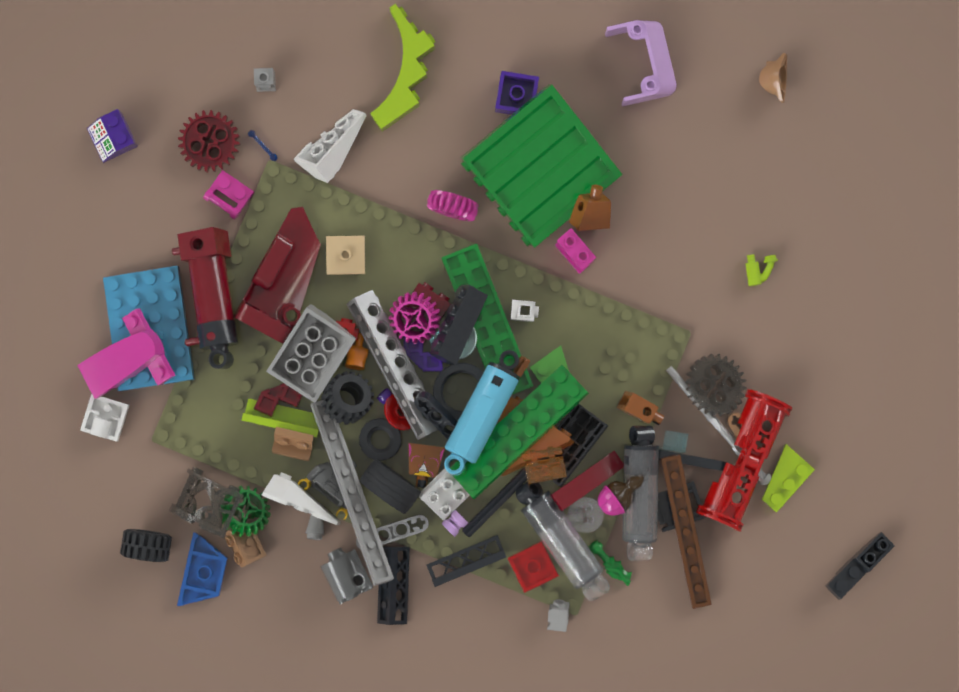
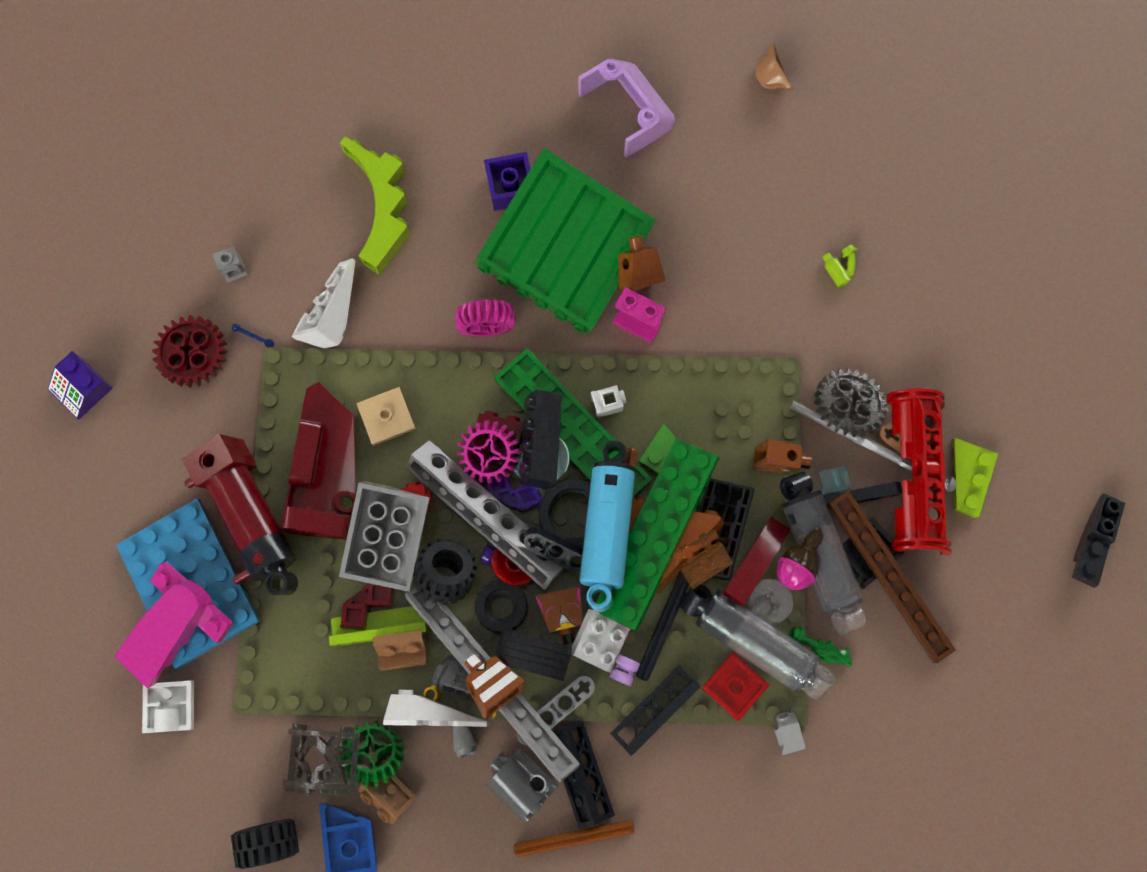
camera: 20 degrees left, 10 degrees down
(232, 189) = (234, 394): dark pink plate -> none
(351, 497) = (491, 684): none -> dark orange torso
(357, 355) = (438, 520): orange piece -> none
(370, 628) = (573, 838): none -> dark orange axle

